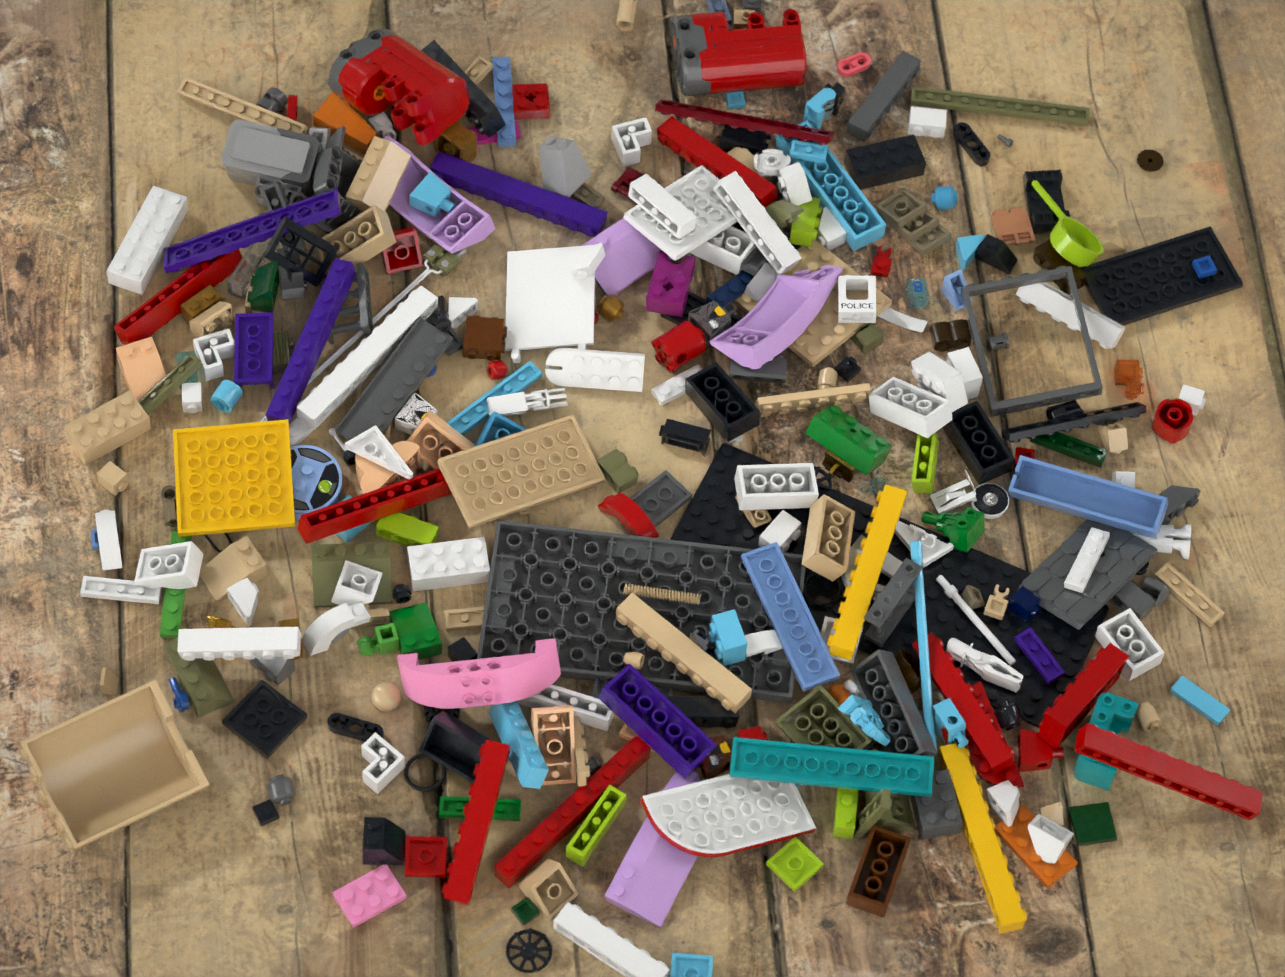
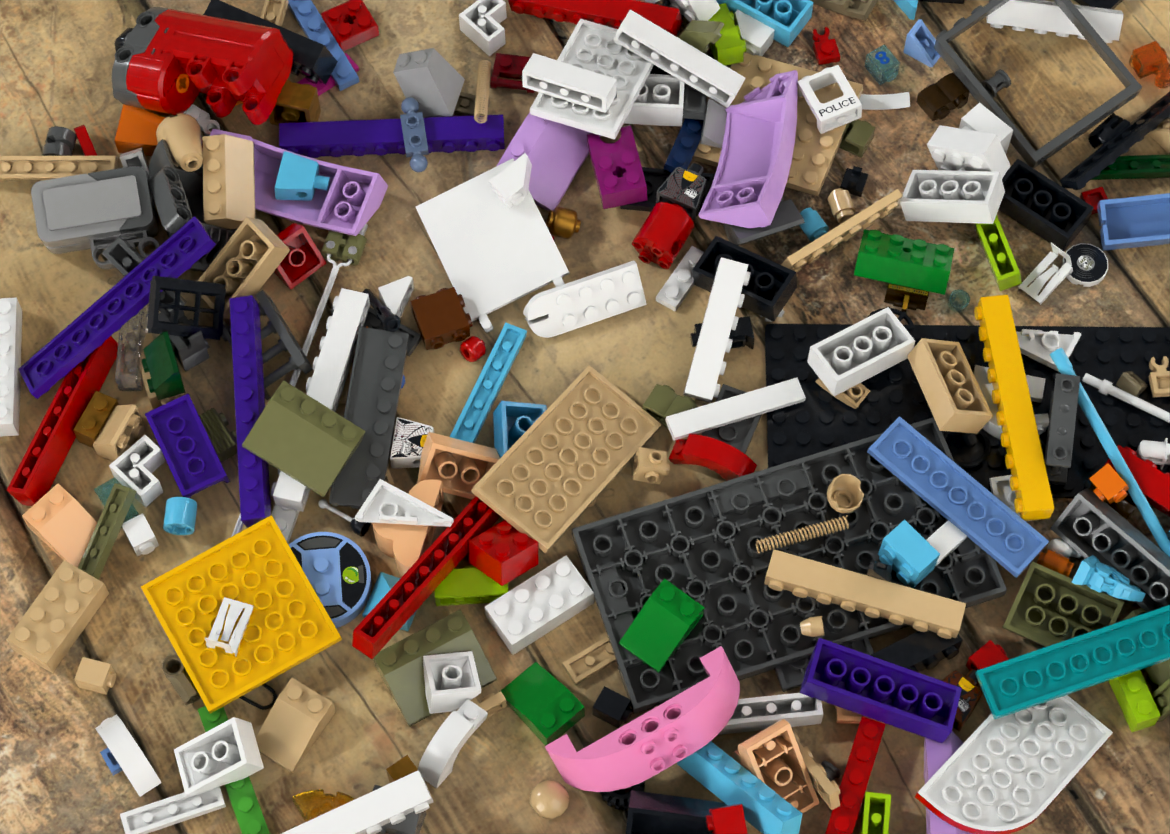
camera: 20 degrees left, 5 degrees up
(219, 492) = (233, 613): none -> white piece
(244, 599) = (325, 755): white slope -> none
(337, 376) = (303, 438): none -> olive slope
(359, 133) = (183, 140): none -> tan cone
(384, 641) = (514, 732): bright green brick -> none
(402, 593) = (503, 664): black plate -> none
(439, 515) = (503, 552): none -> red brick
(520, 402) = (519, 377): white arm -> none
(525, 611) = (662, 625): none -> green slope
(532, 199) = (414, 134): none -> sand blue plate
(580, 503) = (650, 465): none -> tan brick
(599, 187) = (485, 81): none -> tan piece
(664, 490) = (735, 409): none -> white tile
(677, 427) = (715, 330): none -> white brick
(706, 577) = (845, 493): none -> tan hair
(781, 530) = (889, 402): white brick -> none
(794, 864) = (1112, 786): lime plate -> none
(796, 382) = (814, 224): none -> medium azure brick
(905, 654) = (1109, 485): none -> orange brick
(961, 528) = (1072, 309): green brick -> none

